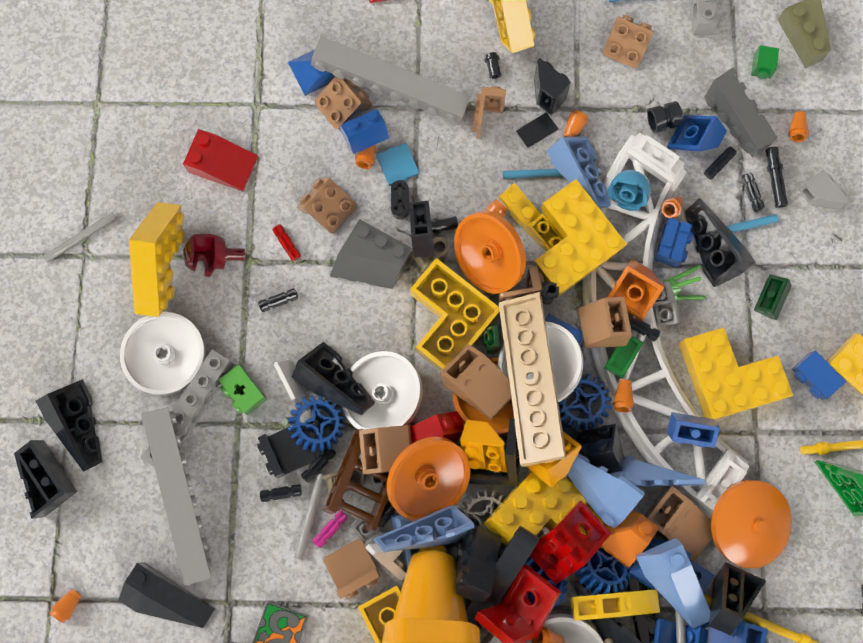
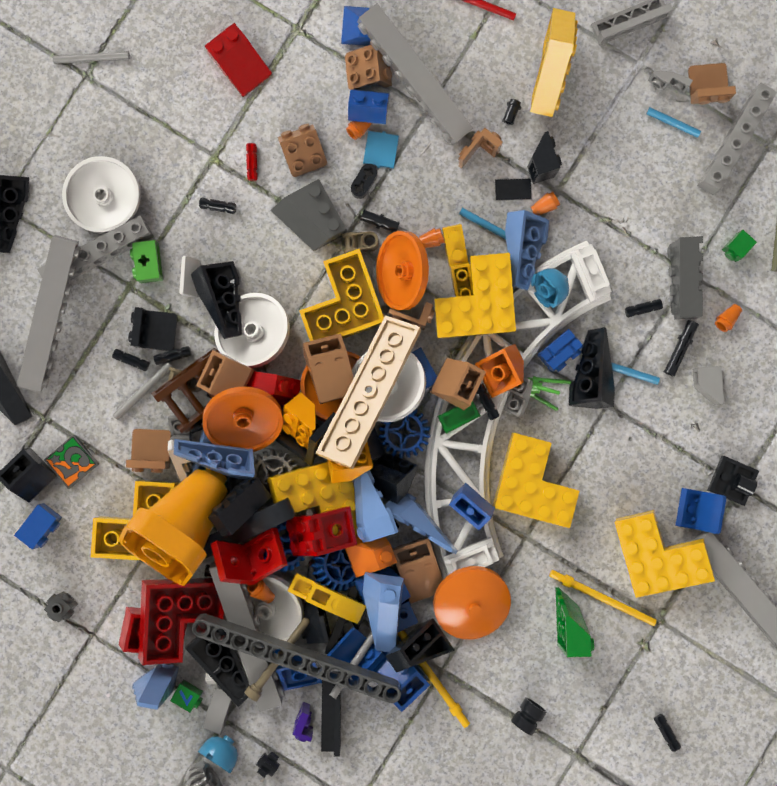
camera: 30 degrees right, 10 degrees up
(151, 257) = (132, 111): yellow brick -> none
(211, 250) = (187, 132): dark red piece -> none
(325, 422) = (182, 339): blue gear -> none
(330, 529) = (151, 410): dark pink axle -> none
(421, 229) = (362, 217): black slope -> none
(492, 339) = (363, 340): dark green slope -> none
(549, 292) = (425, 332): black pin -> none
(623, 398) = (436, 449): orange cone -> none
(628, 41) = (637, 158): medium nougat bracket -> none
(662, 117) = (623, 242): black wheel -> none
(672, 207) = (578, 321): orange cone -> none
(698, 134) = (640, 273): blue slope -> none
(753, 192) = (653, 348): black axle -> none
(773, 296) = (611, 442): dark green slope -> none
(818, 375) = (601, 525): blue brick -> none

